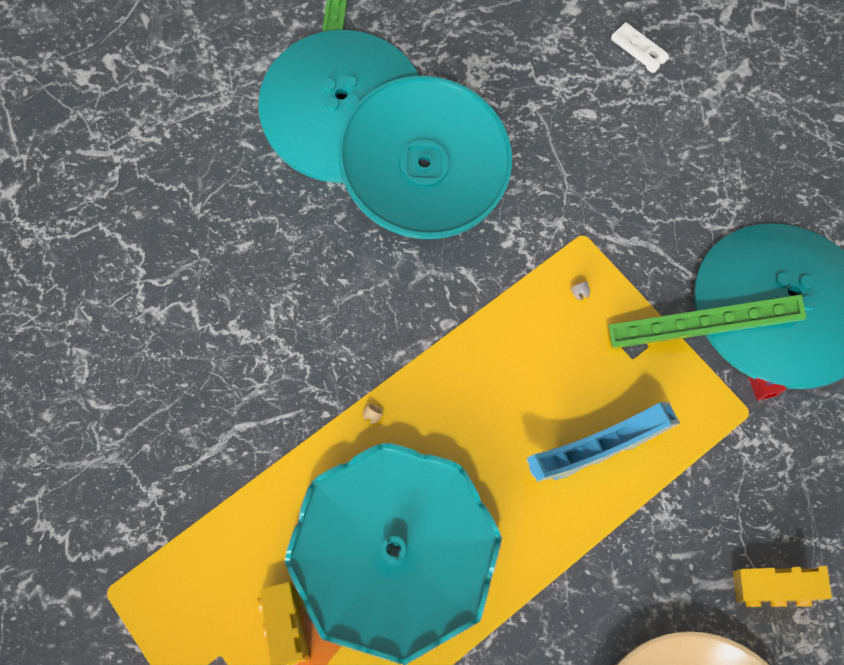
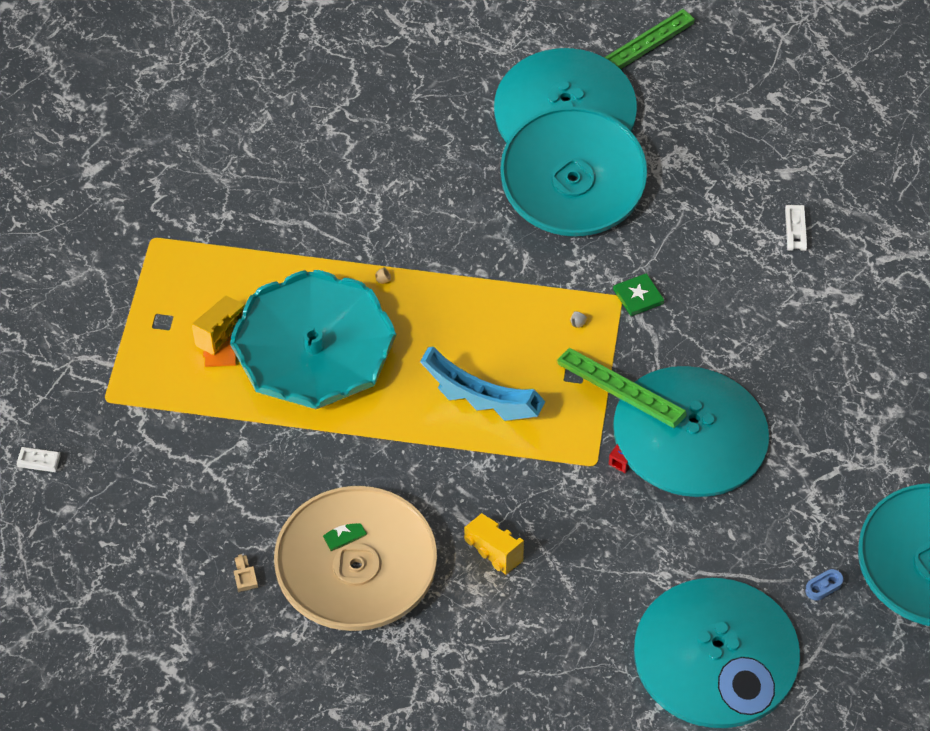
camera: 45 degrees right, 15 degrees down
(596, 219) = (638, 294): none -> green tile

